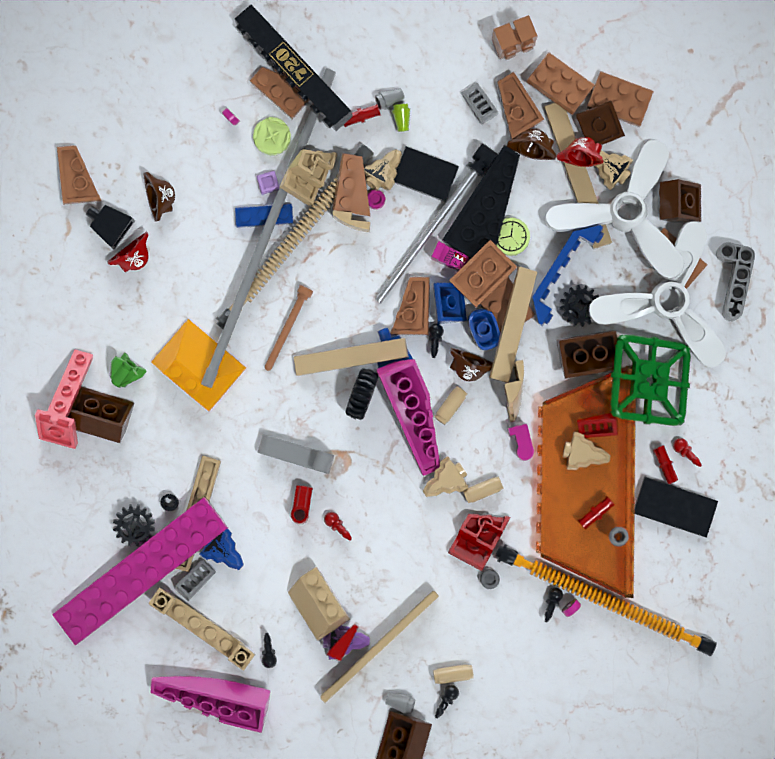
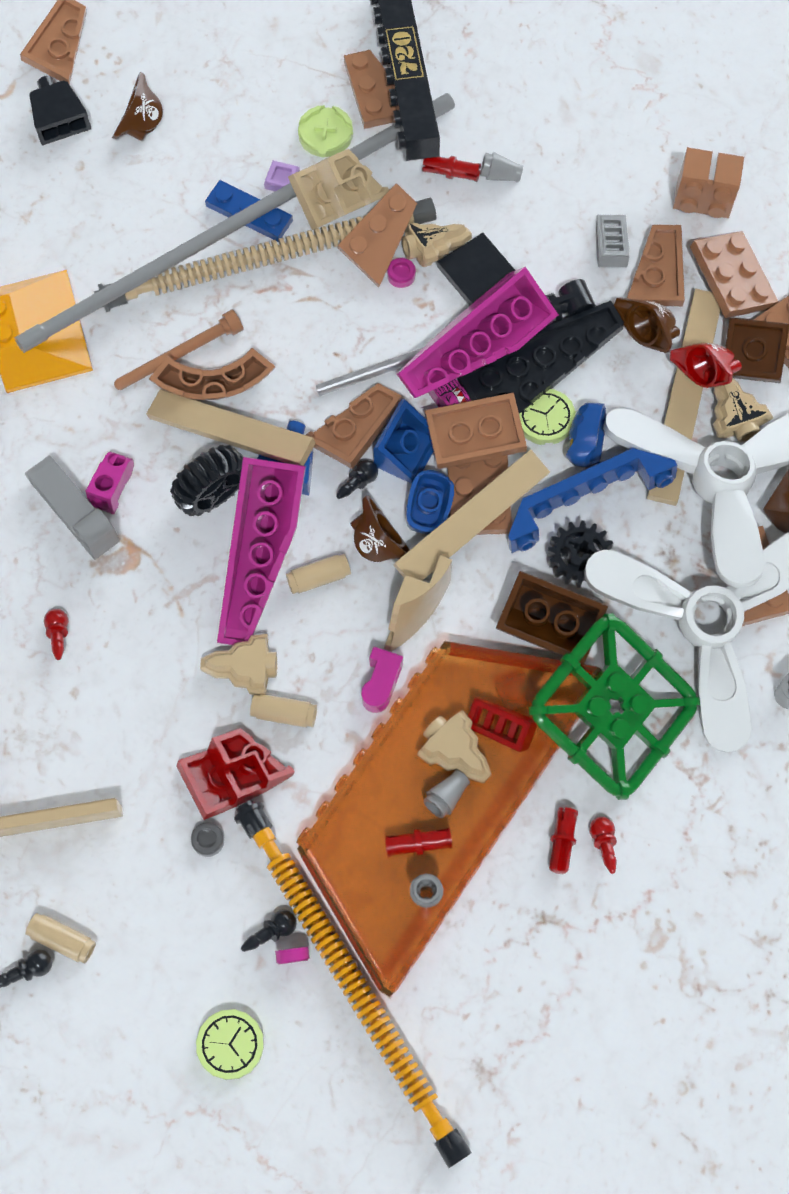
camera: 30 degrees right, 15 degrees down
(133, 255) = (56, 158): red hat -> none
(230, 116) = (291, 79): dark pink tile -> none
(301, 502) = (31, 572): red piece -> none
(305, 426) = (109, 482): none -> dark pink leg
(321, 336) = (212, 384): none -> nougat brick
(346, 219) = (348, 272): tan slope -> none
(401, 115) = (502, 196): lime cone -> none
(451, 210) = (481, 334): none -> dark pink wedge
(541, 236) = (587, 435): none -> blue piece
(569, 668) = (230, 1044): none -> yellowish green tile
(594, 480) = (446, 794): none -> light grey cone
(675, 507) = (539, 911): black tile -> none

